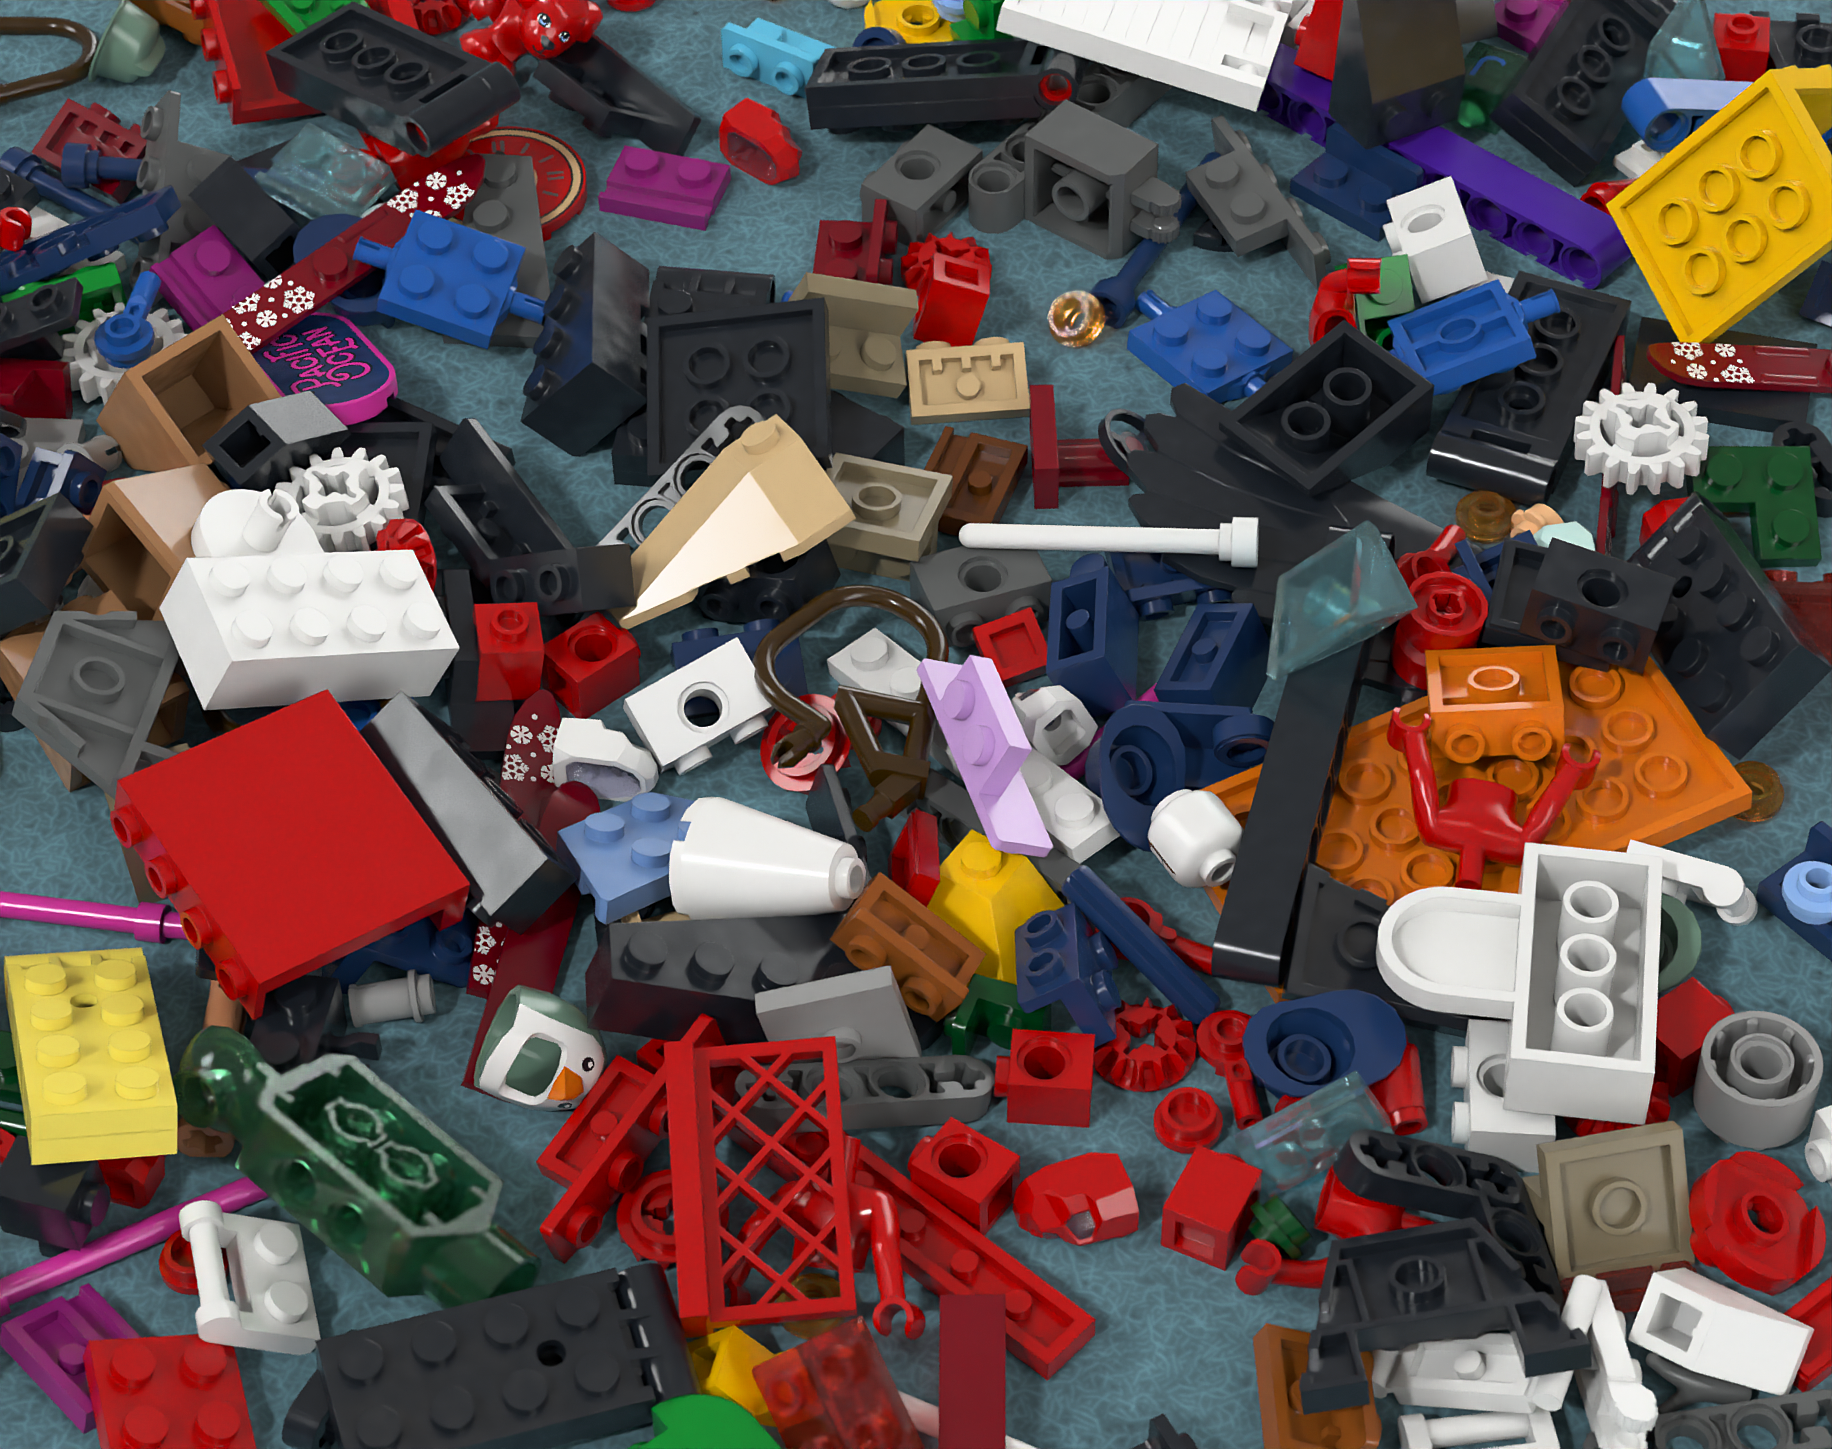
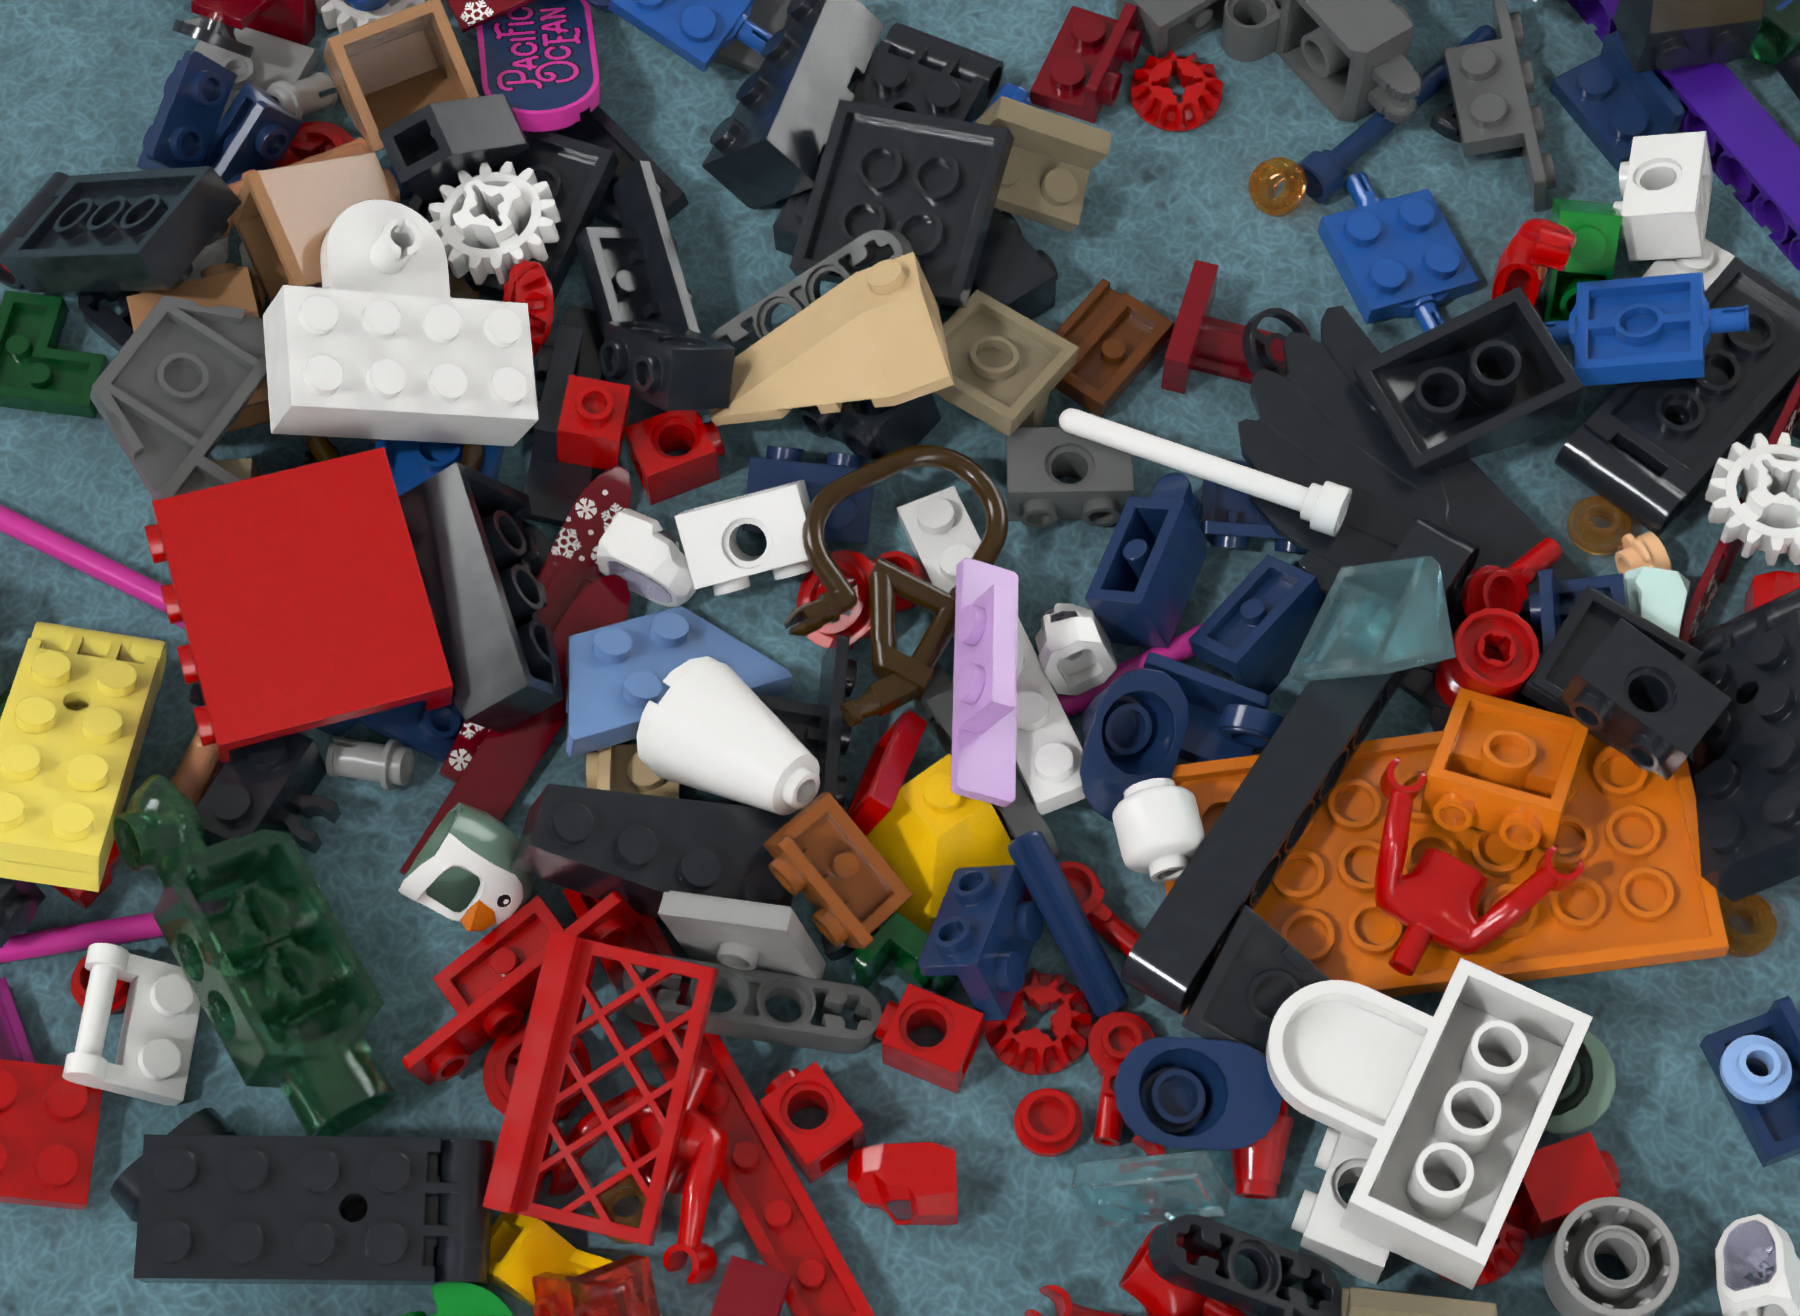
camera: 20 degrees right, 15 degrees up
(951, 301) = (1157, 141): red brick -> none
(967, 381) = (1142, 230): tan bracket -> none
(1014, 646) = (1073, 547): red plate -> none
(1210, 1207) = (1032, 1226): red brick -> none
(1279, 1226) = (1086, 1271): dark green plate -> none
(1703, 883) = (1618, 1010): white plate -> none

